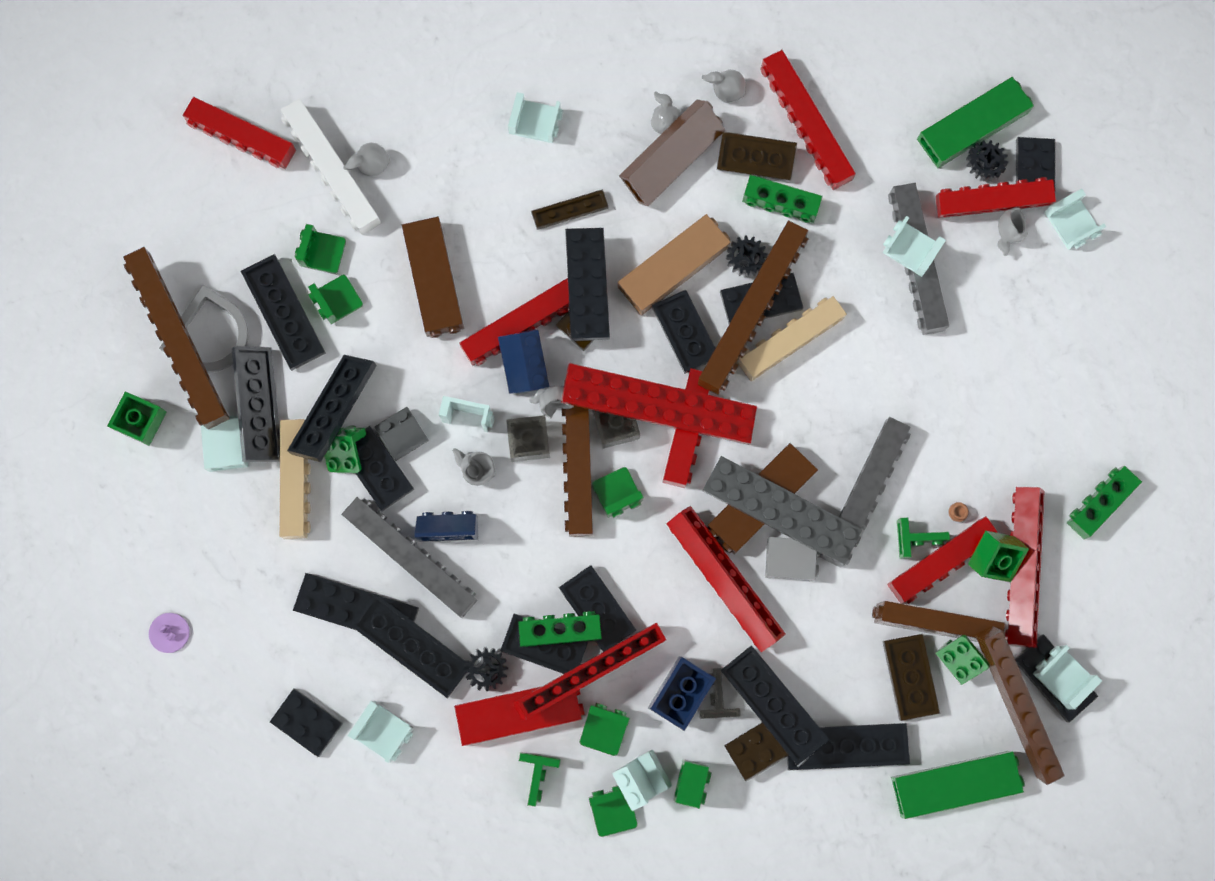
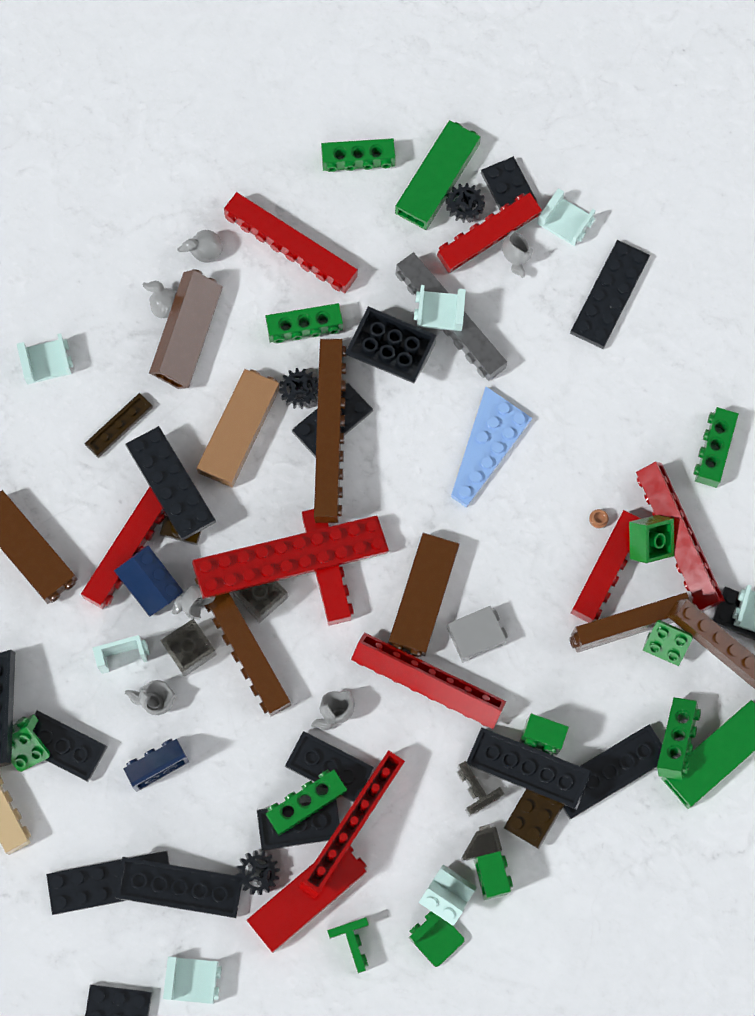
camera: 30 degrees left, 5 degrees down
(401, 433) = (69, 702): dark grey brick -> none
(409, 557) = (135, 809): flat silver brick -> none
(604, 729) = (391, 869): green bracket -> none
(617, 492) = (293, 654): green bracket -> none
(629, 559) = (335, 708): none -> light grey hair
(681, 693) = (442, 801): dark blue slope -> none
(684, 331) = (278, 481): black plate -> none
(698, 749) = (483, 843): none -> clear smoke slope
(756, 156) = (262, 296): dark brown plate -> none
(782, 510) = (446, 594): dark grey plate -> none
(792, 338) = (376, 440): tan brick -> none
(804, 682) = (544, 734): none -> green brick
(850, 258) = (391, 345): none -> black slope
(872, 477) = (510, 545): flat silver brick -> none
(899, 387) = (492, 436): none -> light blue wing
(905, 538) = (576, 560): green bracket -> none
(911, 677) = (632, 682): dark brown plate -> none
(920, 65) = (365, 148): none -> green brick
(941, 726) = (676, 767): none -> green brick
(1078, 310) = (609, 294): none -> black plate

